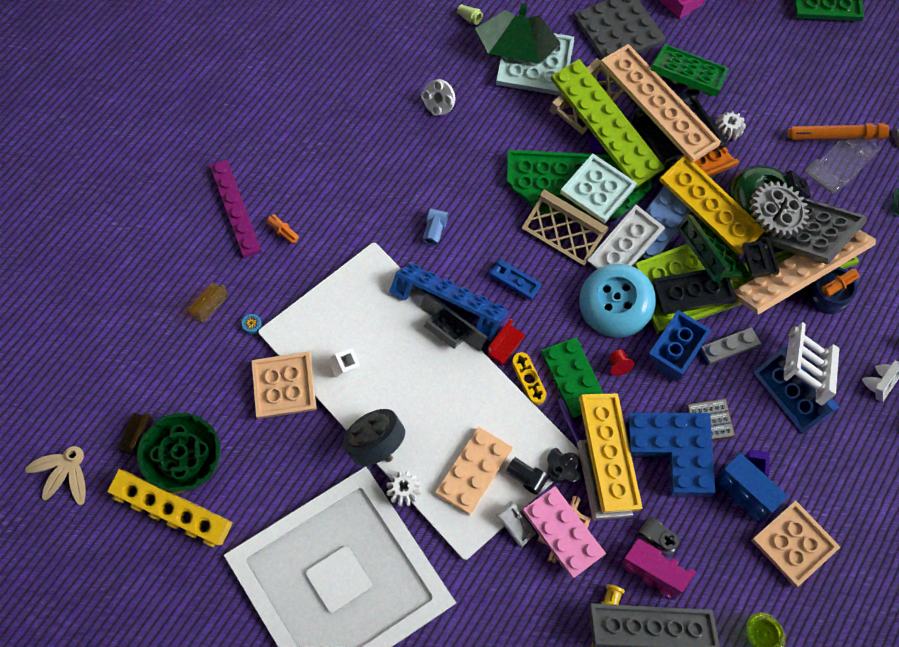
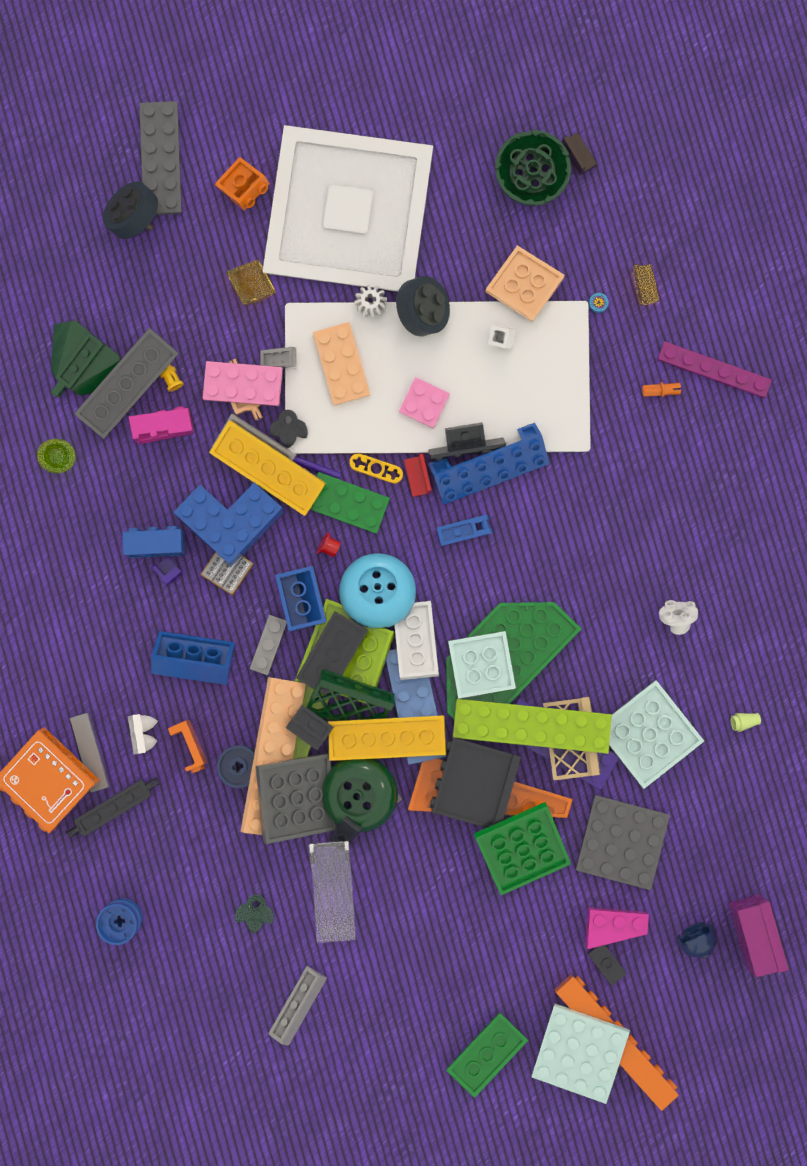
camera: 135 degrees right, 20 degrees up
(65, 466) = (593, 86): tan plant -> none
(125, 481) = (493, 142): yellow brick -> none
(435, 223) = (565, 513): medium blue piece -> none
(447, 382) = (424, 402): none -> bright pink plate
(474, 604) = (251, 283): none -> clear yellow slope
(517, 37) = (681, 732): dark green panel -> none
(531, 478) = (299, 396): black piece -> none
(574, 214) = (479, 621): tan fence -> none
(657, 534) = (186, 450): dark grey piece -> none
(660, 103) = (510, 781): light nougat plate -> none
(730, 125) = (440, 839): white gear -> none
(790, 217) = (316, 785): light grey gear -> none
(795, 544) = (92, 541): light nougat plate -> none
(826, 362) = (184, 689): white fence -> none
(836, 132) = (338, 939): orange cylinder -> none
(840, 282) = (235, 766): orange axle -> none
(852, 346) = (193, 745): none -> orange panel

